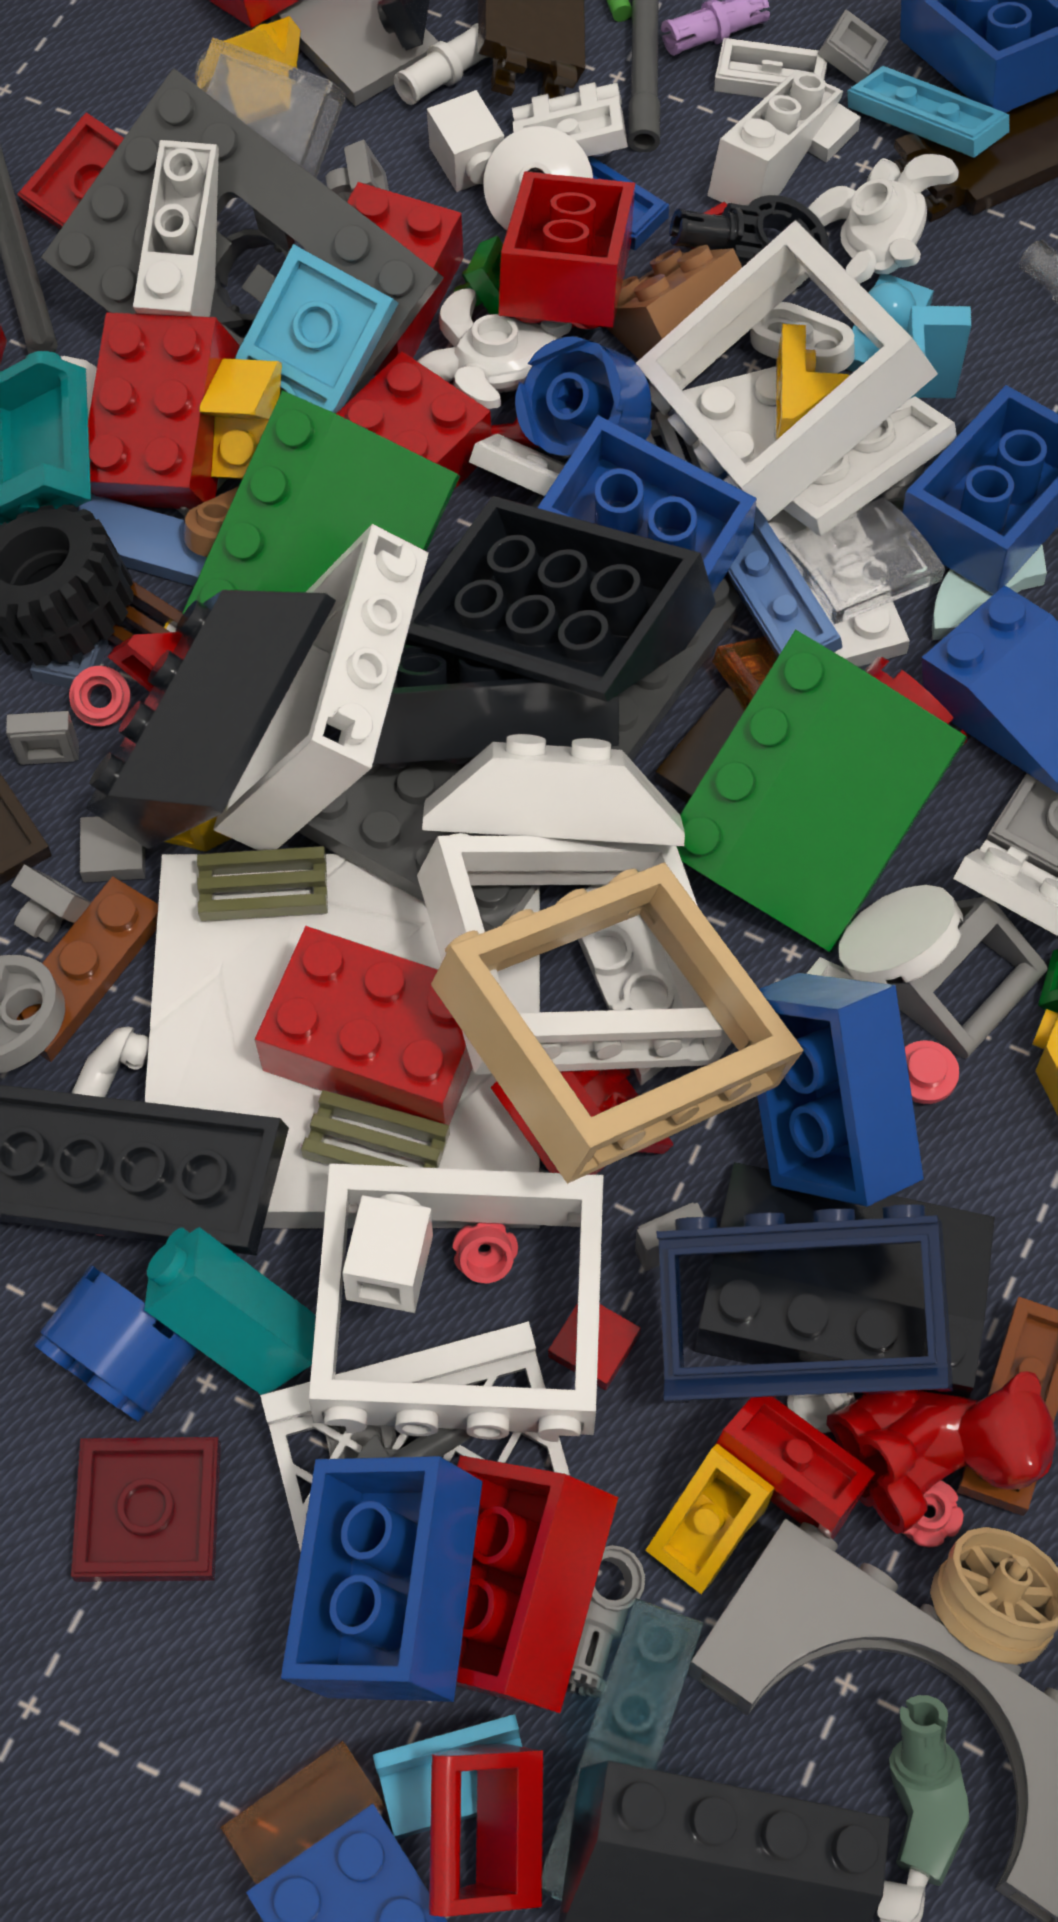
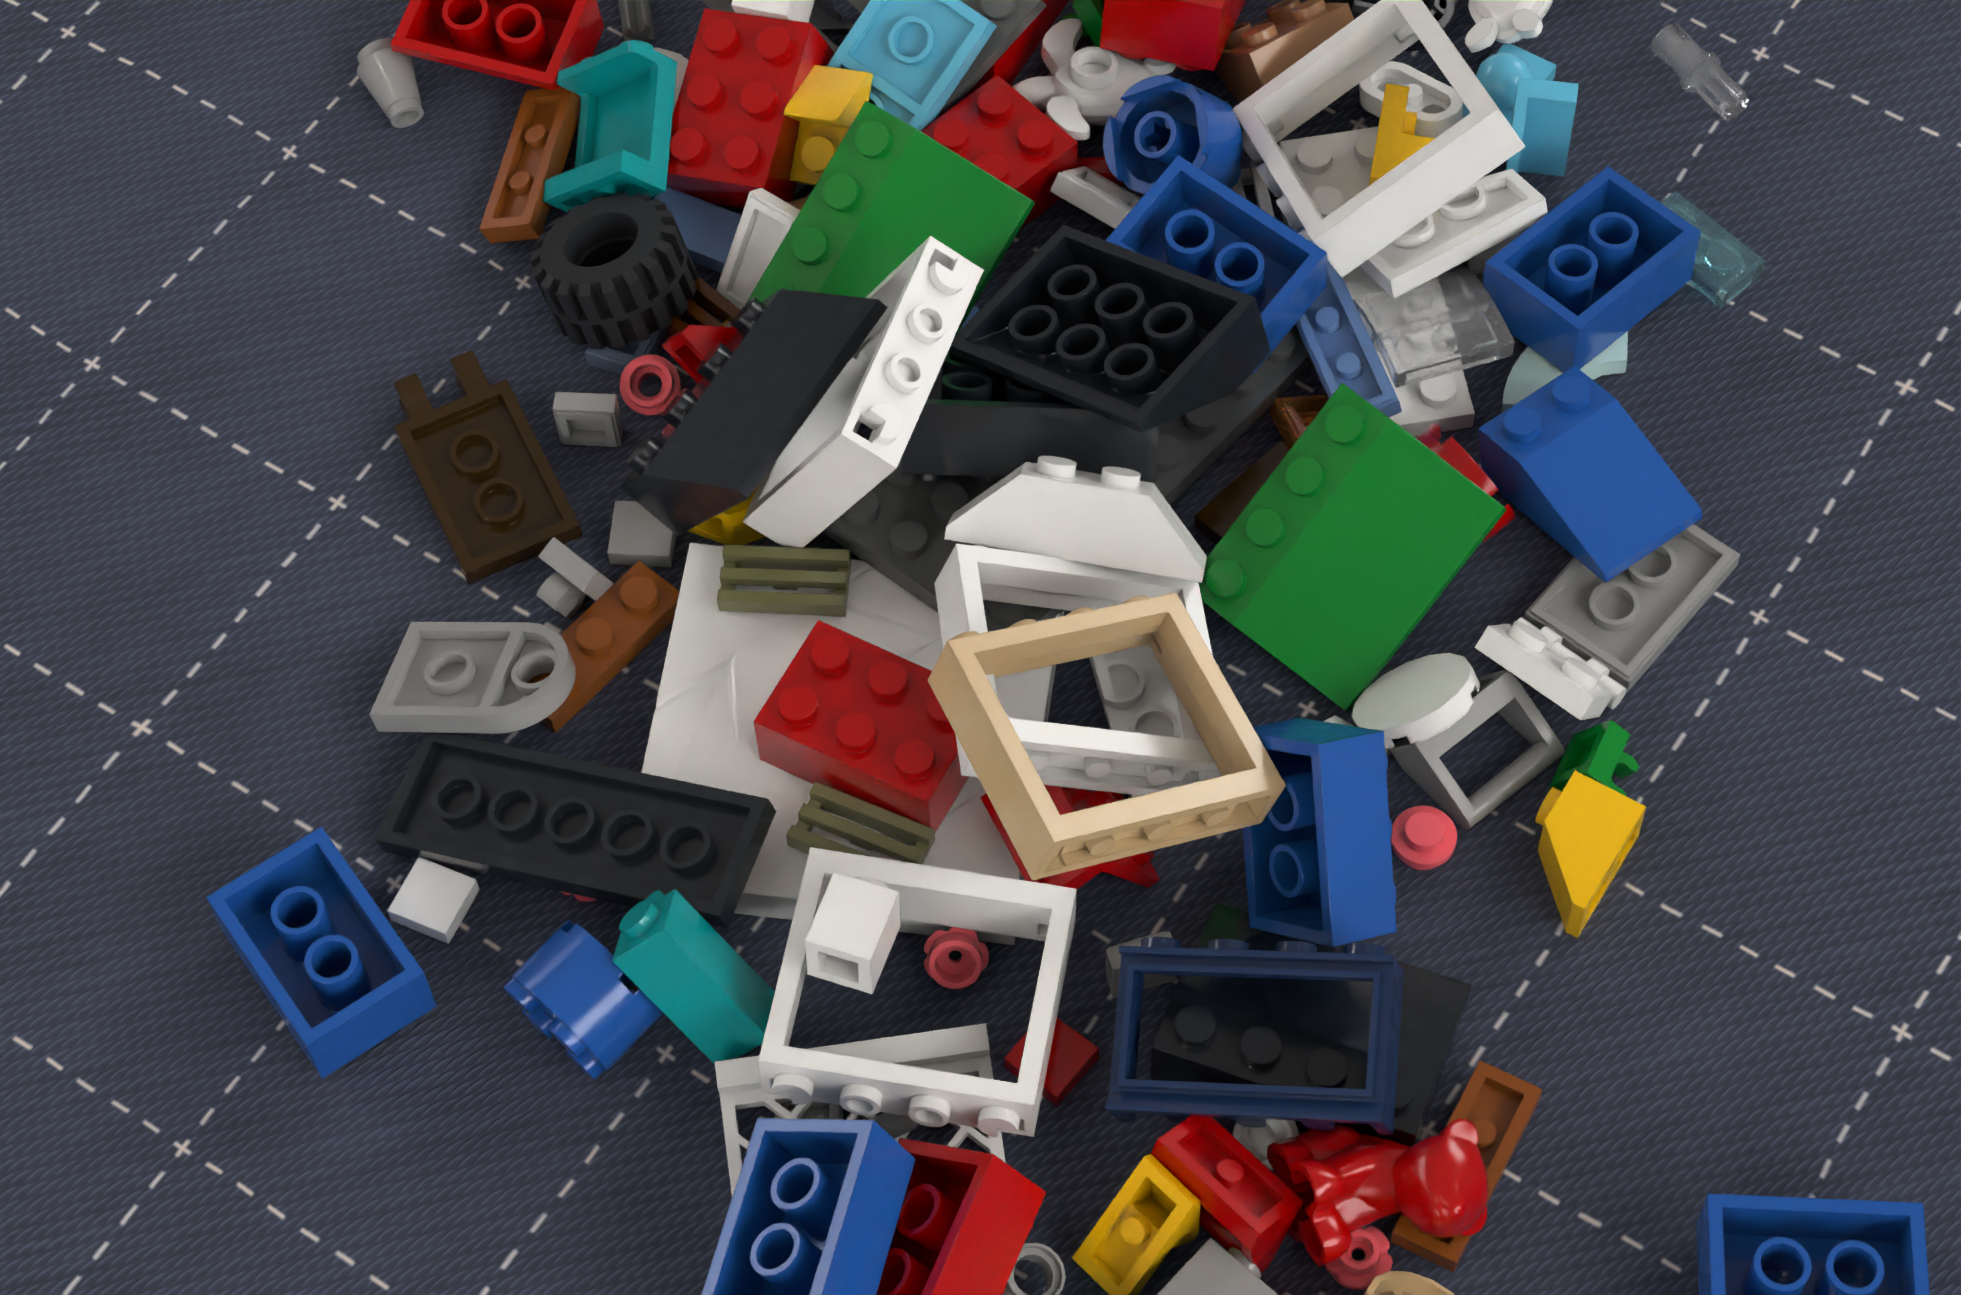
camera: 10 degrees right, 5 degrees down
(102, 1064) = (605, 739): white arm -> none
(146, 1509) = (591, 1162): dark red tile -> none
(187, 544) = (756, 240): none -> white tile

